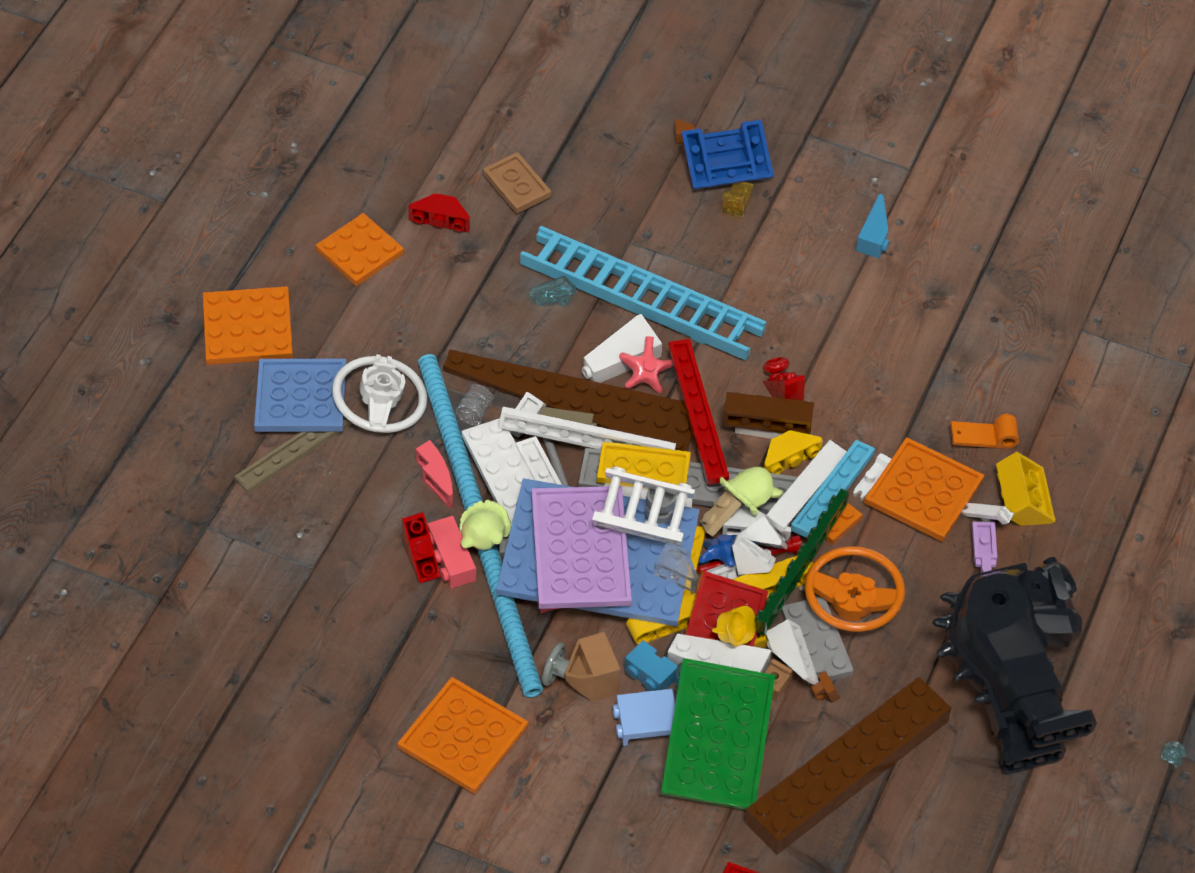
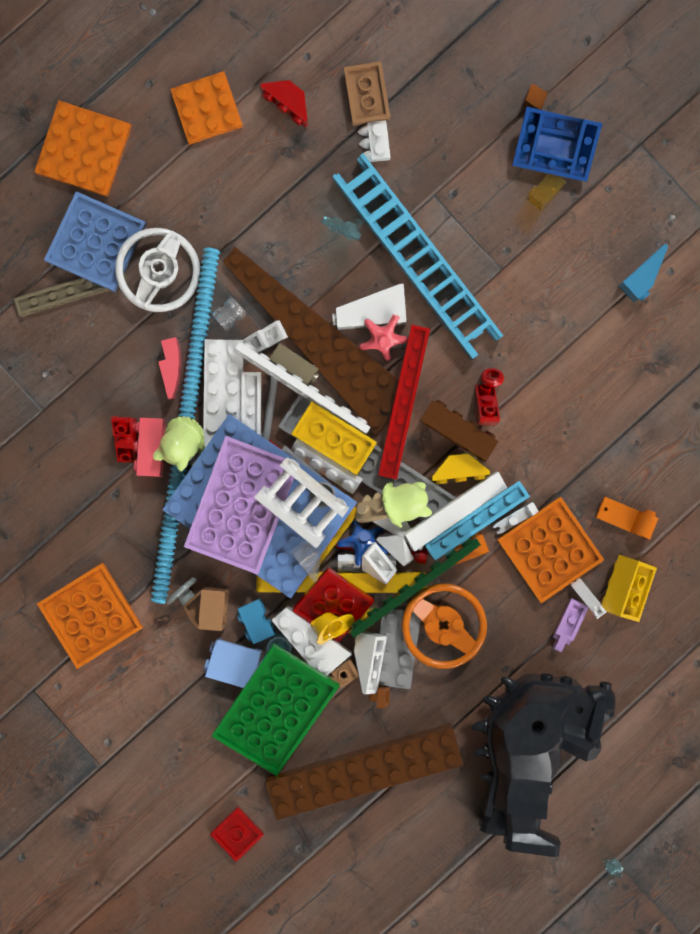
camera: 25 degrees right, 35 degrees up
(547, 216) = (376, 141): none -> white plate

